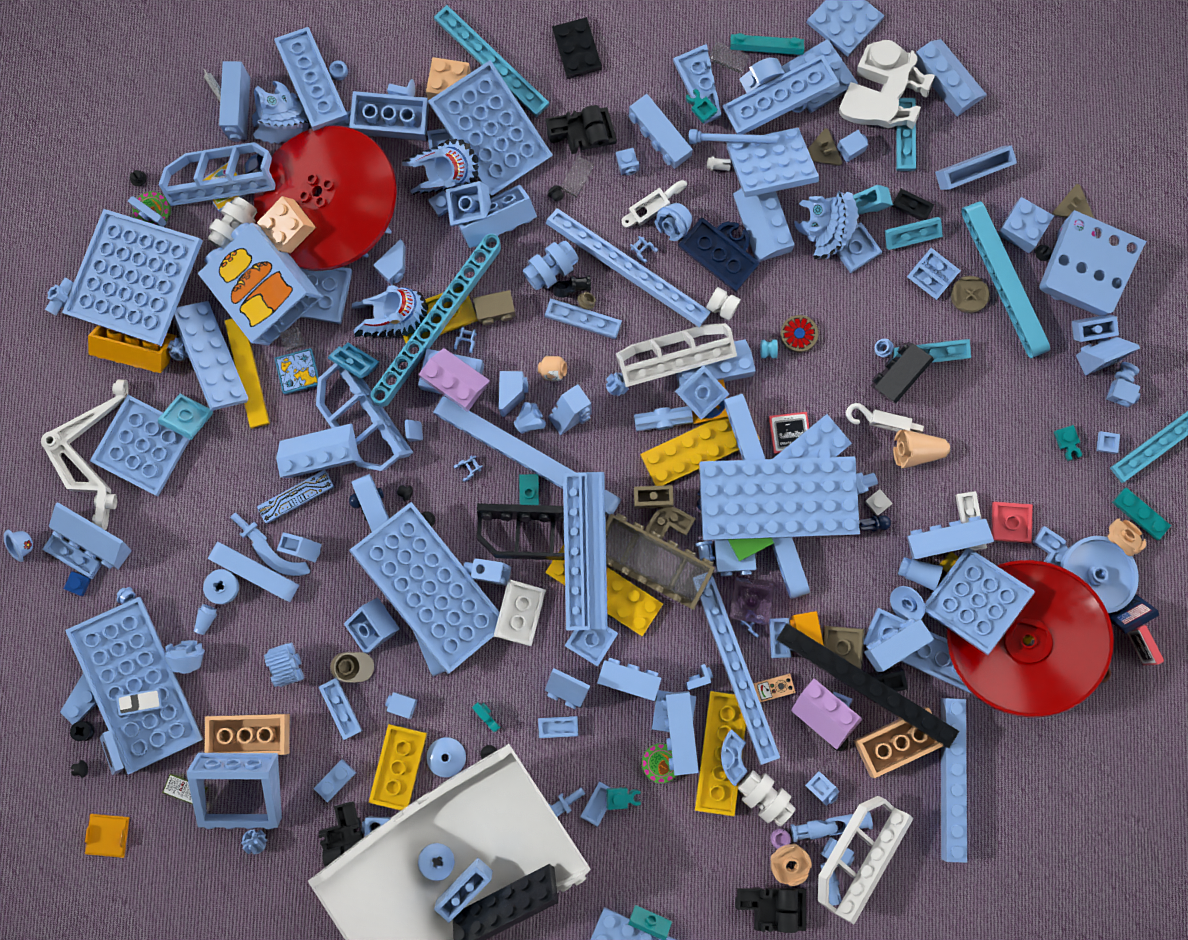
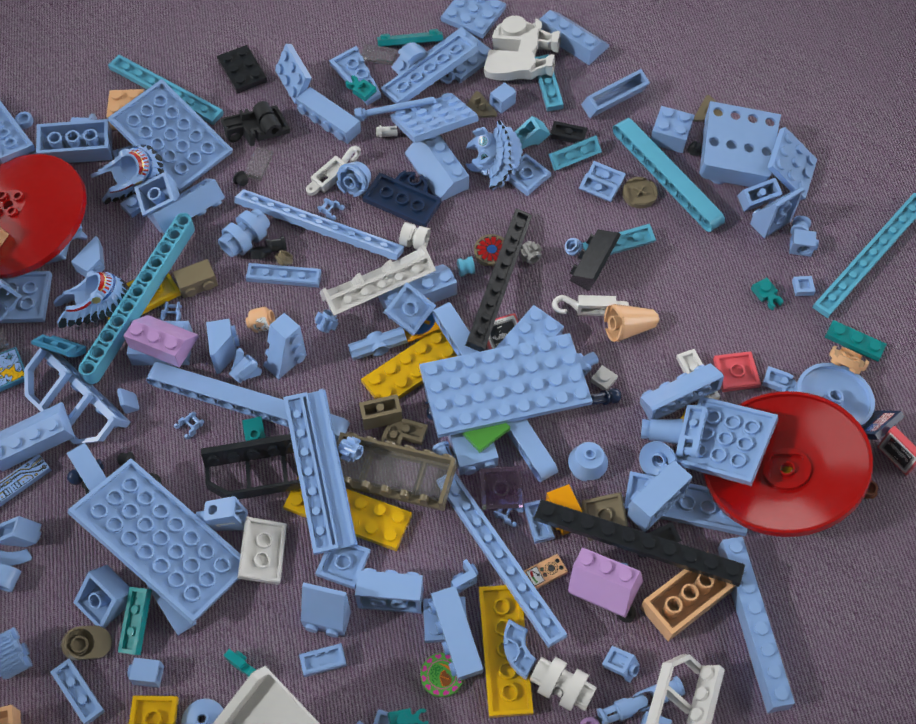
camera: 15 degrees left, 20 degrees down
(397, 656) = (134, 621): none -> teal plate
(618, 534) = (350, 449): none -> light blue gear
(627, 161) = (303, 144): light blue bracket -> none
(631, 71) = (292, 72): none -> light blue plate
(799, 376) = (498, 281): none -> black plate
(838, 346) = (530, 252): none -> light grey gear
(840, 588) = (588, 461): none -> light blue cone
(948, 584) = (692, 430): none -> light blue plate
(1141, 298) = (792, 162): none -> light blue plate

